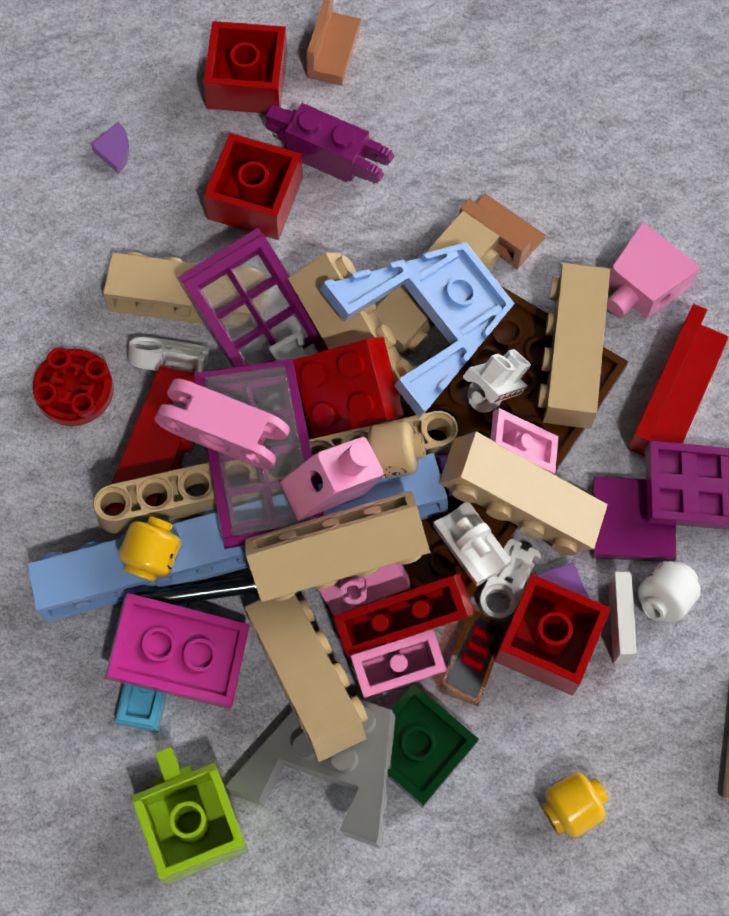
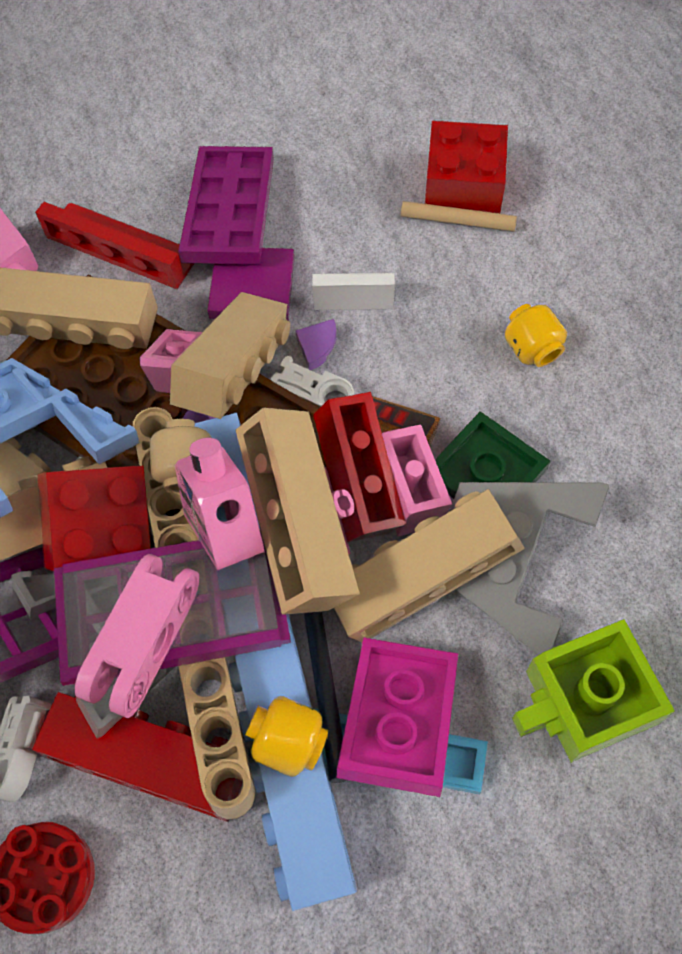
camera: 85 degrees left, 5 degrees down
(472, 543) = (291, 391): white hips -> none
(496, 380) = (101, 376): white hips -> none
(552, 635) = (374, 341): red brick -> none
(669, 591) = (328, 250): white head -> none

